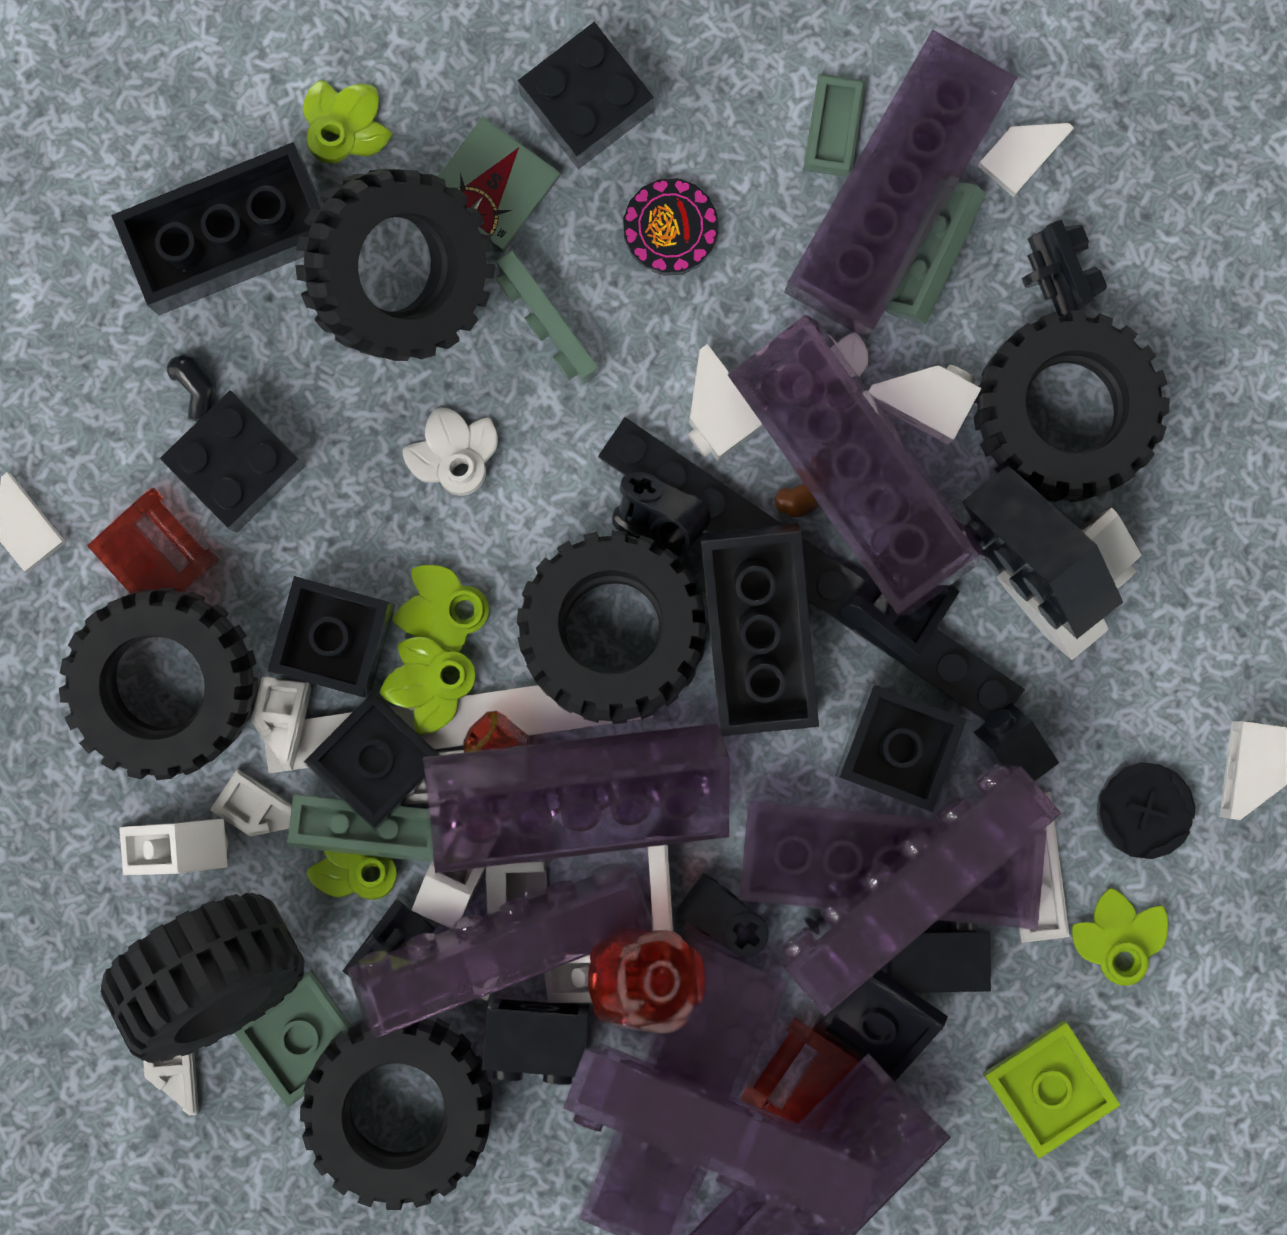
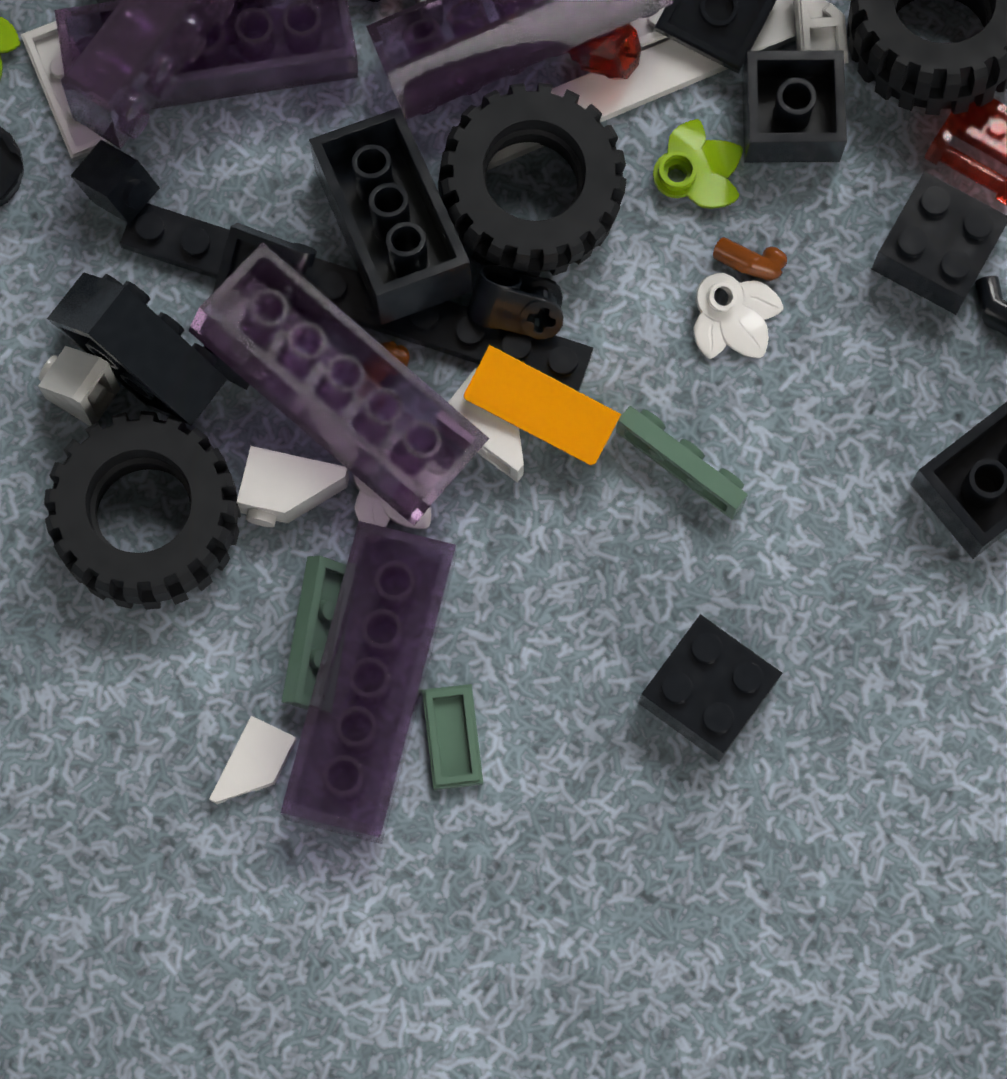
camera: 165 degrees right, 10 degrees down
(347, 115) = (942, 610): lime plate -> none
(421, 683) = (695, 91): lime plate -> none
(423, 499) = (746, 261): none -> dark orange arm
(455, 273) = (800, 416): black tyre -> none
(499, 180) = (775, 583): sand green tile -> none
(665, 403) = (541, 405): none -> light orange panel
(670, 226) = (587, 589): black tile -> none
(900, 747) = (225, 150): black brick -> none
(1058, 268) = (191, 646): black hips -> none

